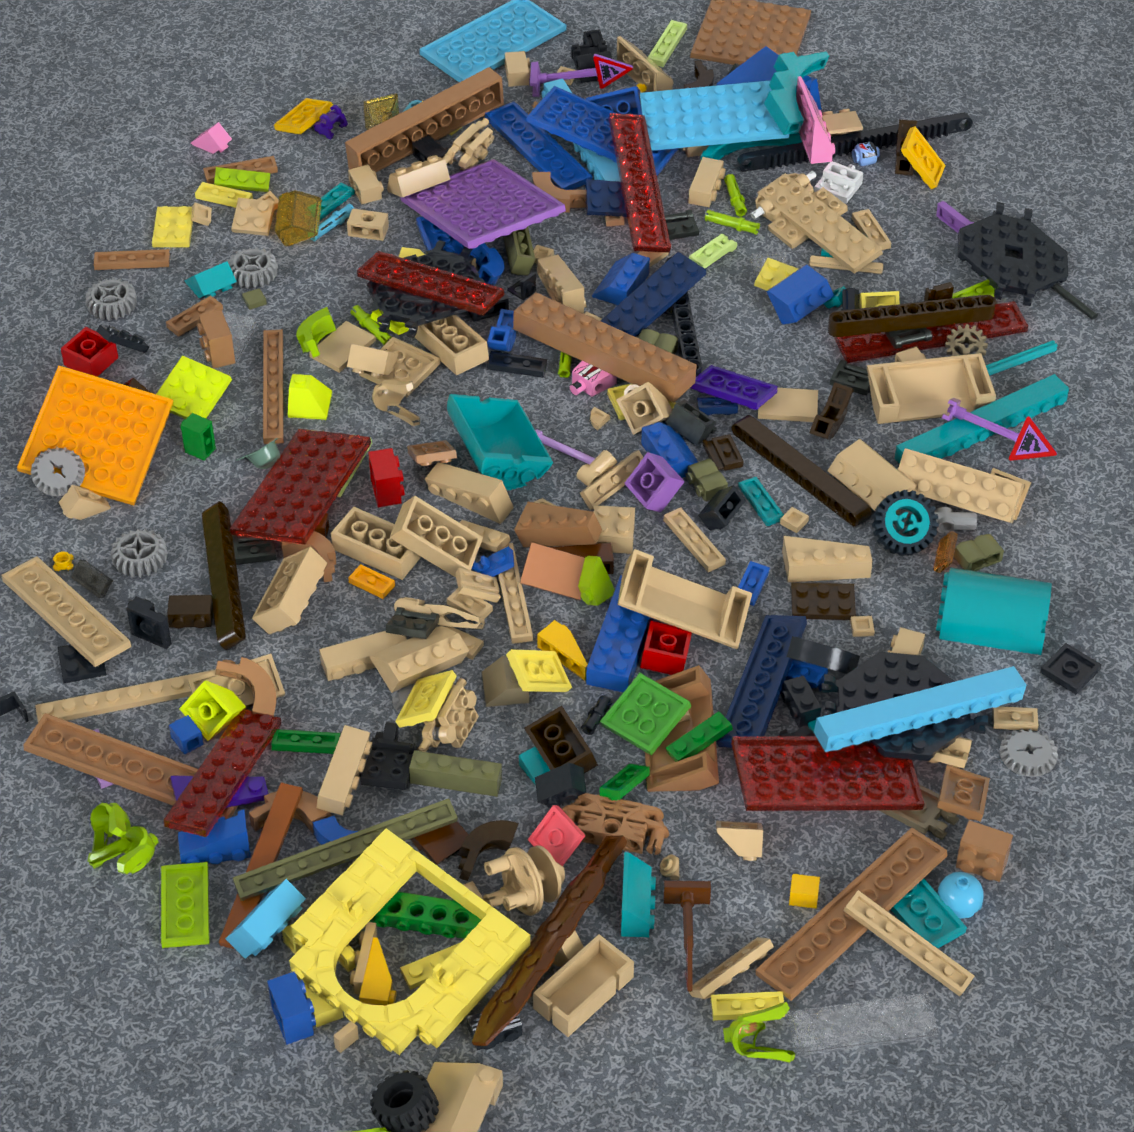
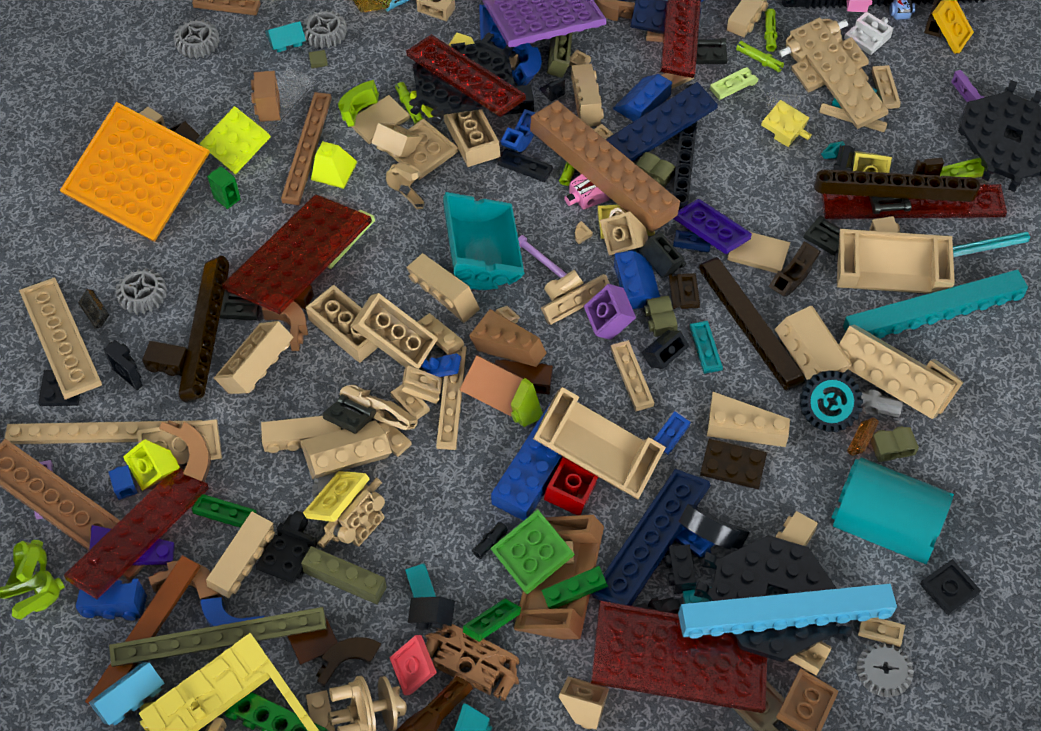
camera: 15 degrees right, 10 degrees up
(56, 484) = (105, 201): light grey gear -> none
(63, 561) = (76, 281): yellow plate -> none
(82, 503) = (109, 233): tan slope -> none
(89, 352) = (160, 88): red brick -> none
(123, 338) = (190, 80): black plate -> none
(185, 905) = (68, 656): lime plate -> none
(190, 318) = (268, 63): medium nougat plate -> none
(264, 457) = (276, 216): sand green piece -> none
(371, 581) = (331, 360): light orange plate -> none
(386, 477) = (372, 259): red brick -> none
(432, 451) = (420, 242): medium nougat plate -> none
(502, 685) = (418, 488): dark tan slope -> none
(538, 671) = (446, 487): light yellow plate -> none
(560, 639) = (477, 459): yellow slope -> none
(560, 741) = (446, 567): dark brown slope -> none
(617, 527) = (562, 350): tan brick -> none
(670, 867) = (510, 717): tan plate -> none
(794, 520) = (730, 373): tan plate -> none
(799, 294) = (799, 142): blue slope -> none
(862, 626) = (763, 498): tan tile -> none
(958, 344) = (950, 224): dark tan gear -> none
(1028, 443) = (973, 337): piece -> none

